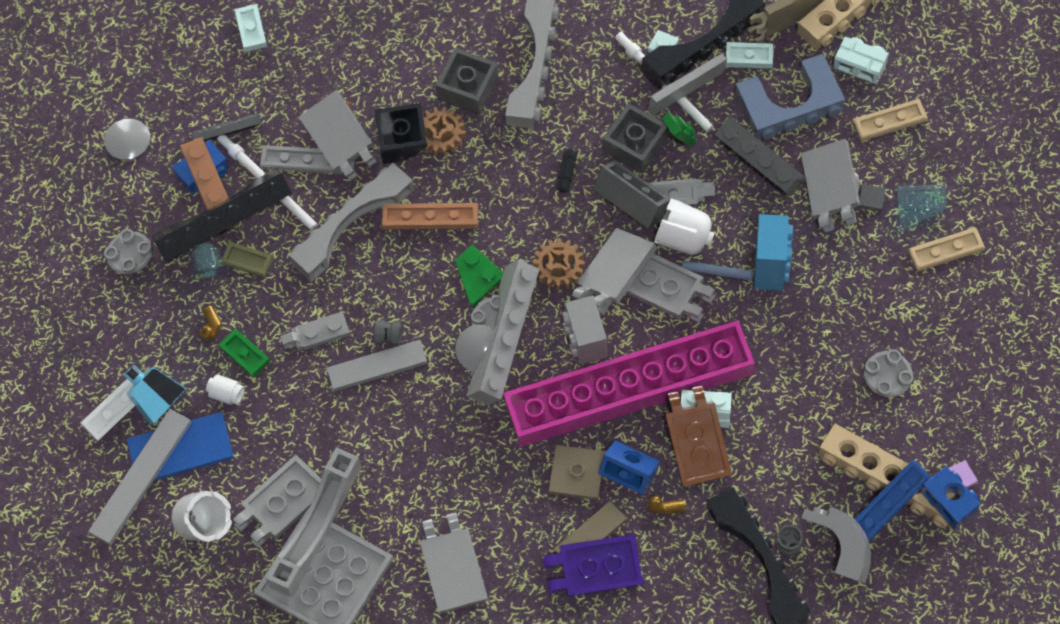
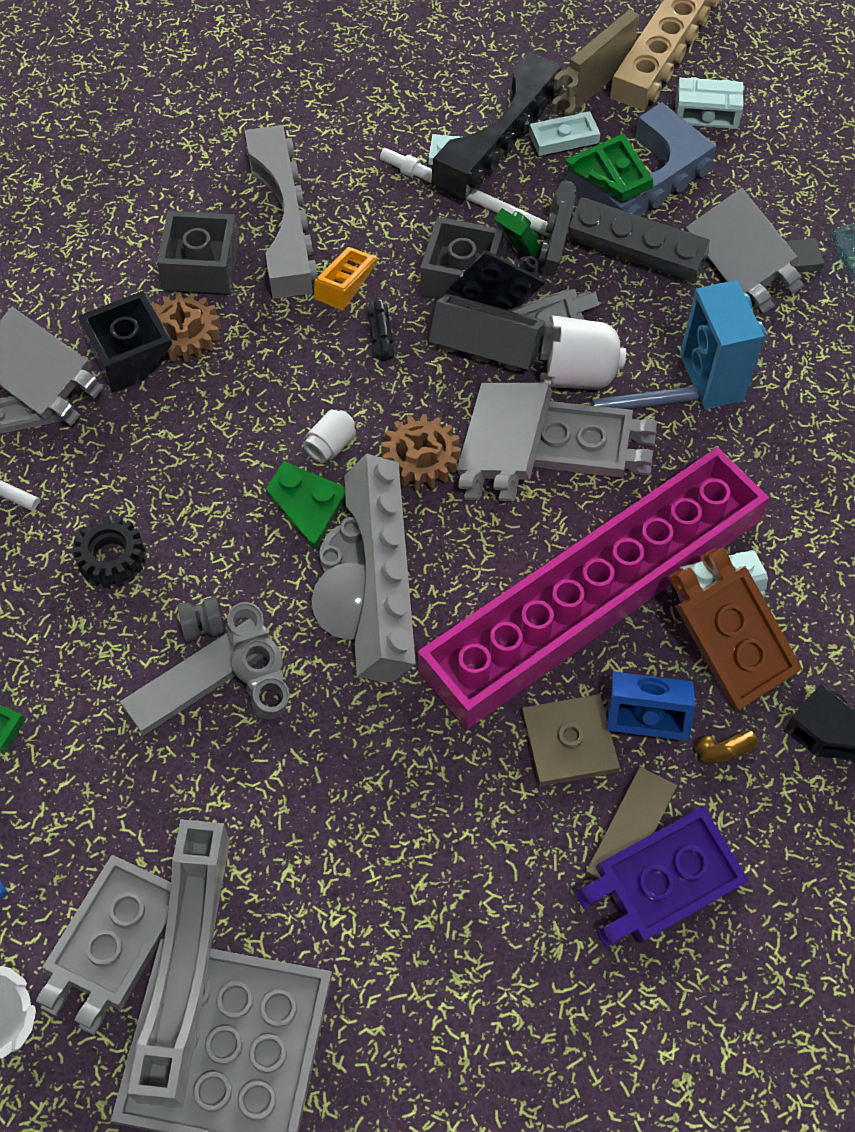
camera: 25 degrees left, 5 degrees down
(314, 254) = (48, 537): light grey arch -> none
(316, 332) = (86, 654): light grey hinge -> none
(345, 260) = (103, 534): none -> black tyre
(407, 357) = (255, 642): none -> light grey piece
(430, 216) = (207, 440): nougat plate -> none
(452, 567) = (435, 956): light grey tile -> none
(506, 236) = (329, 435): none -> white brick
(550, 135) = (339, 294): none -> light orange slope
(584, 330) = (502, 525): light grey brick -> none
(649, 166) = (499, 282): none -> black hinge
(687, 84) = (502, 180): light grey tile -> none
(709, 129) = (557, 226): none -> dark grey hinge
(761, 99) = (612, 168): none -> green wing
(890, 120) = (776, 162): tan tile -> none

